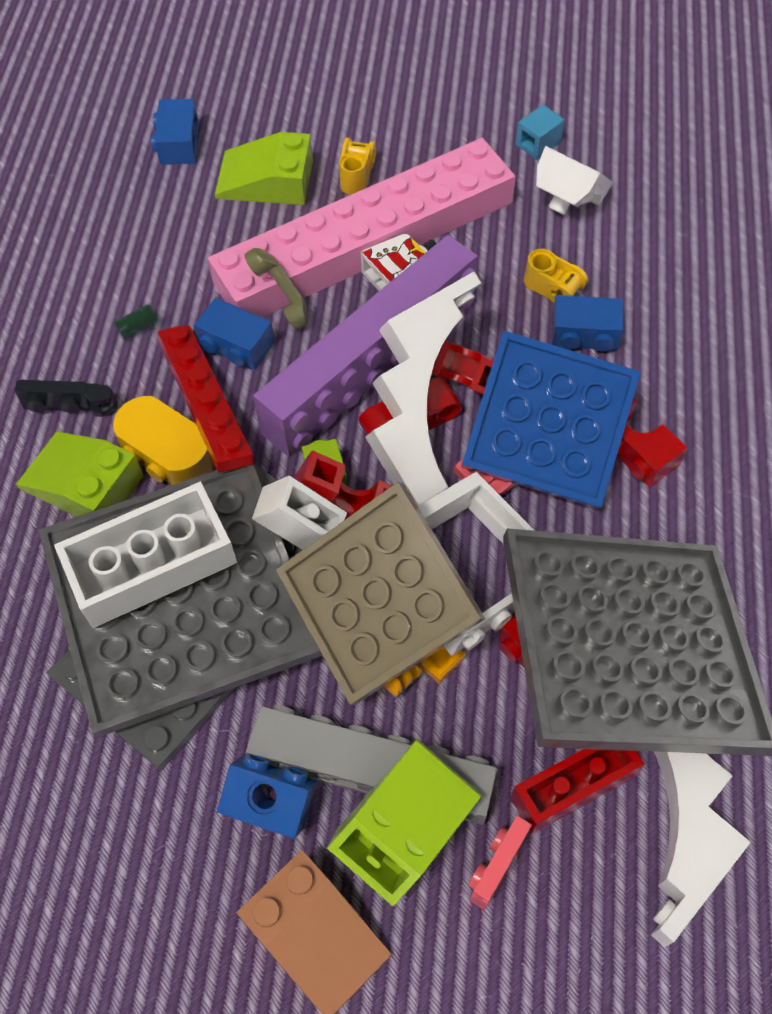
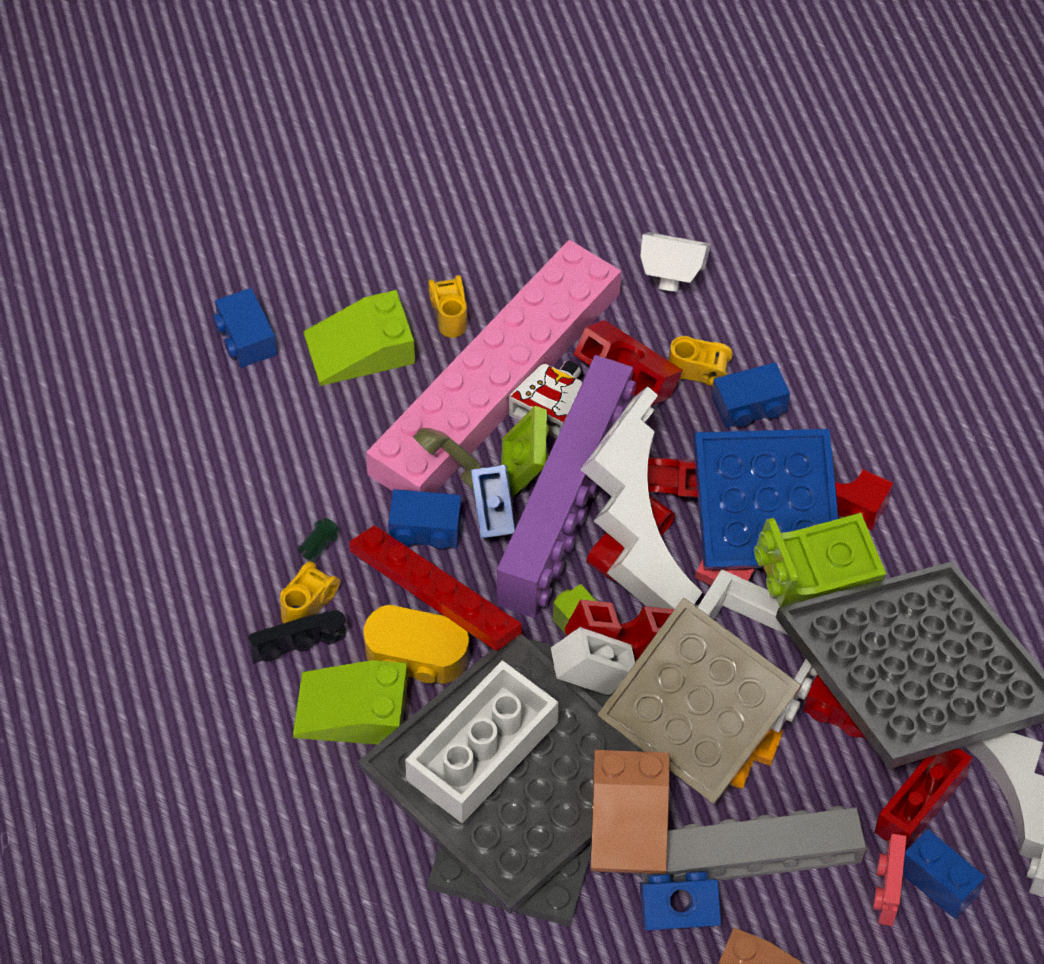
camera: 25 degrees left, 5 degrees down
(96, 364) = (309, 590): none -> yellow piece
(254, 682) = (630, 811): none -> nougat slope
(295, 331) = (494, 501): none -> brick
(350, 298) = (526, 448): none -> lime plate
(403, 822) = (805, 872): lime slope -> none
(499, 271) = (648, 366): none -> red arch
(539, 130) = (615, 211): dark azure brick -> none
(558, 878) = (942, 874): none -> blue brick
(573, 494) = (817, 559): none -> lime bracket

